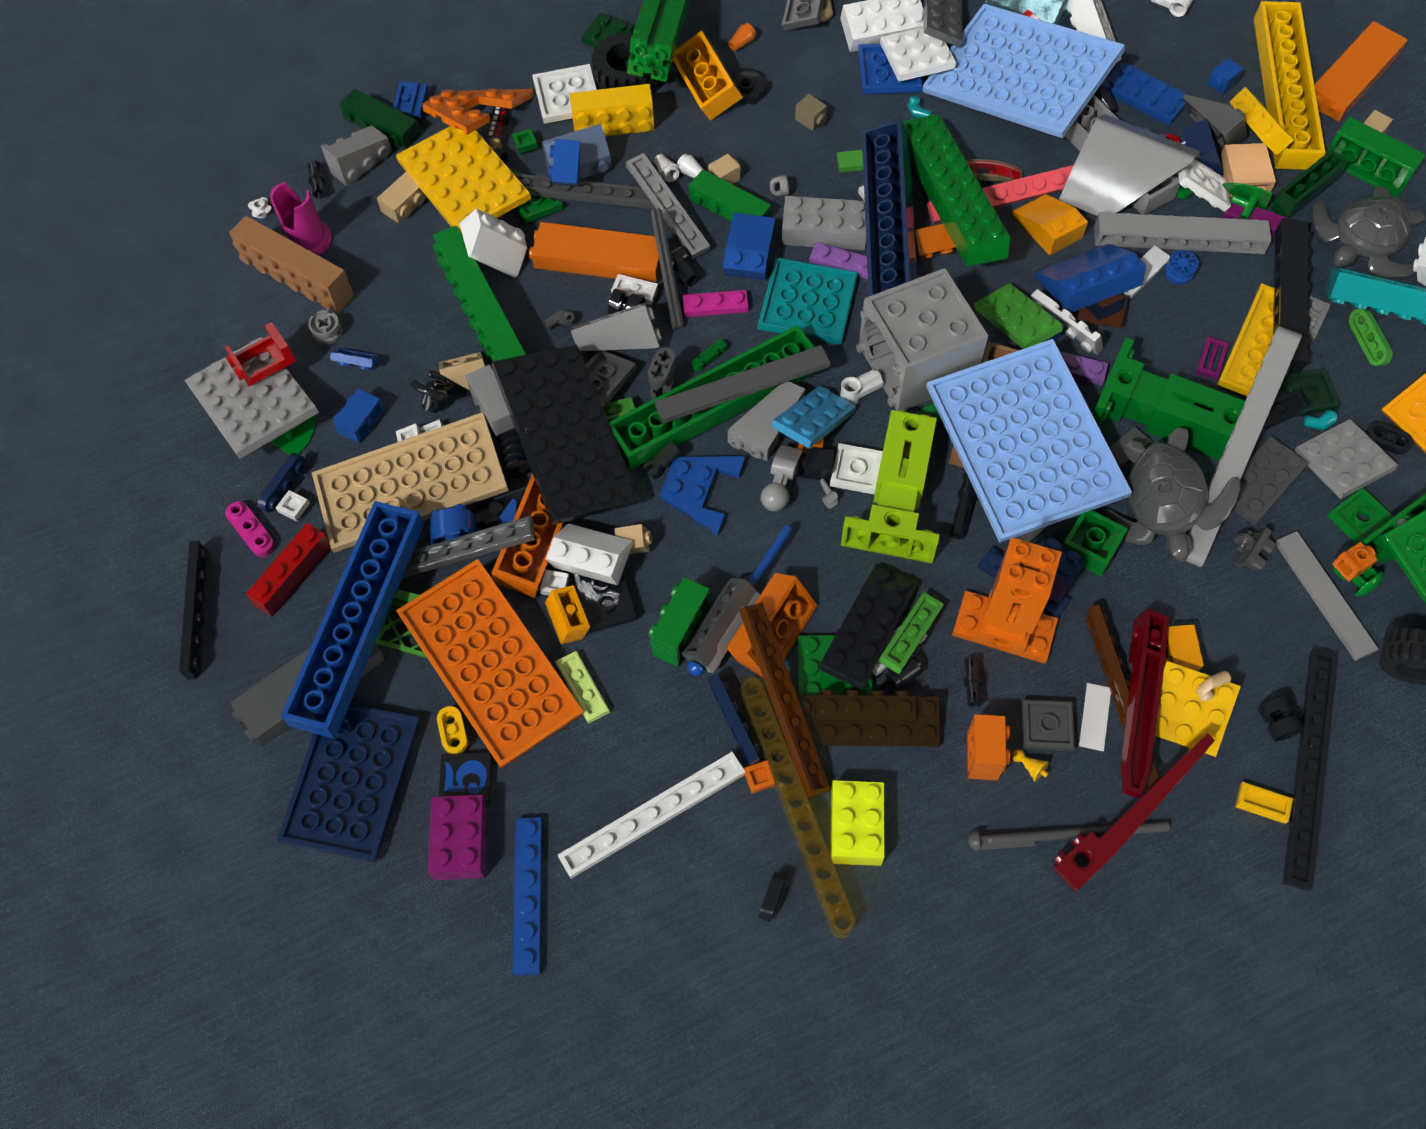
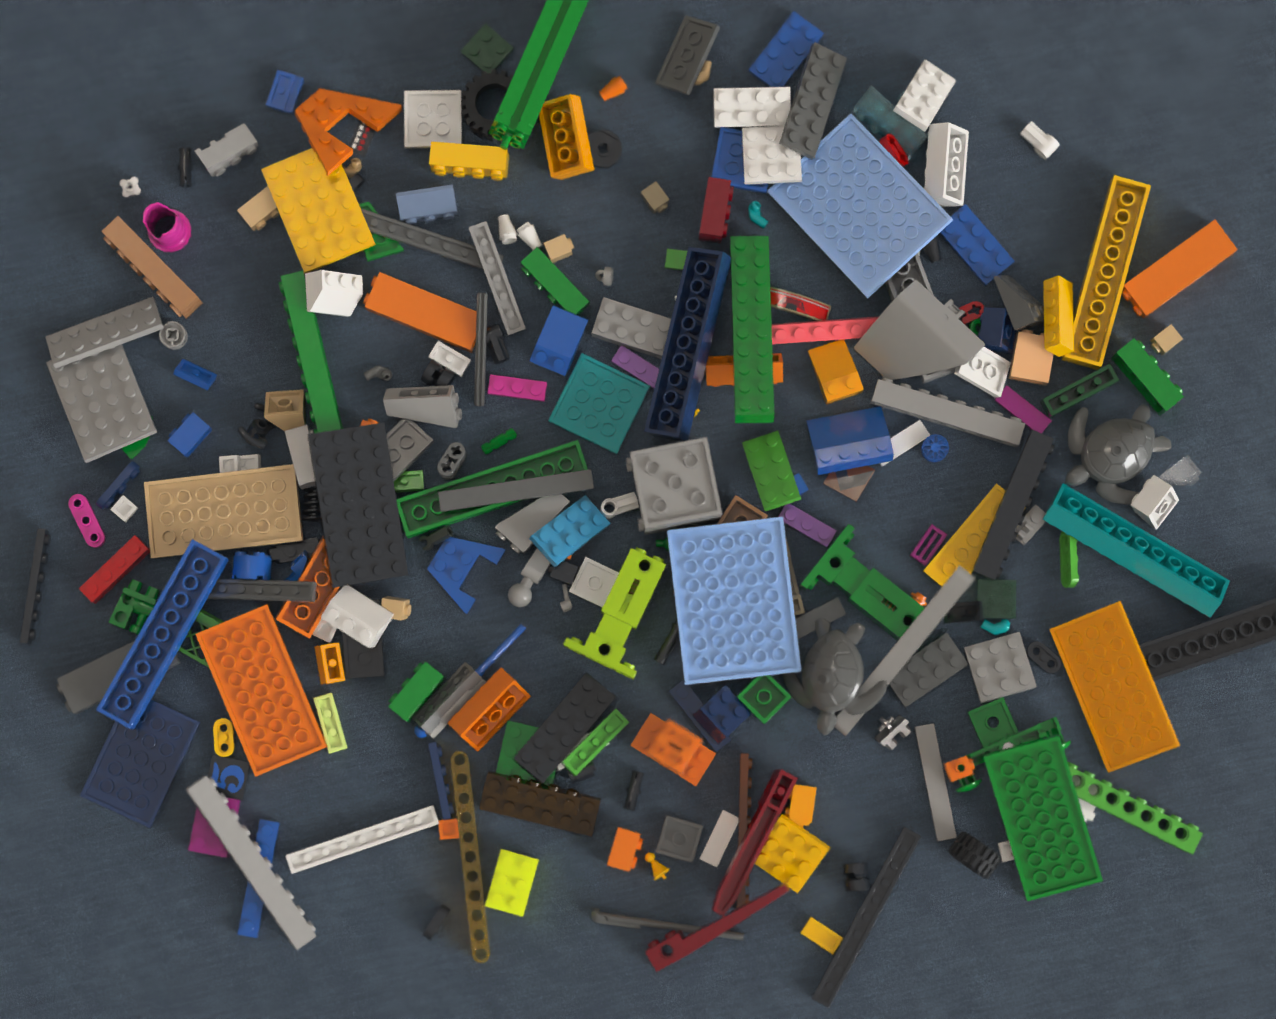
camera: 10 degrees right, 20 degrees up
(214, 352) = (104, 332): none -> light grey plate
(273, 344) = (130, 360): red window -> none
(310, 602) = (134, 602): none -> green hips
(367, 111) = (253, 110): dark green brick -> none
(514, 868) = (250, 862): none -> light grey brick
(524, 141) = (383, 167): green plate -> none
(565, 162) = (412, 220): blue brick -> none
(784, 700) = (480, 778): reddish brown plate -> none
(876, 97) = (716, 210): none -> dark red brick
(1080, 331) = (814, 485): white wing -> none
(1210, 683) = (805, 844): tan arm -> none
(1225, 76) = (1053, 246): blue brick -> none
(1248, 197) = (1016, 399): green shield -> none

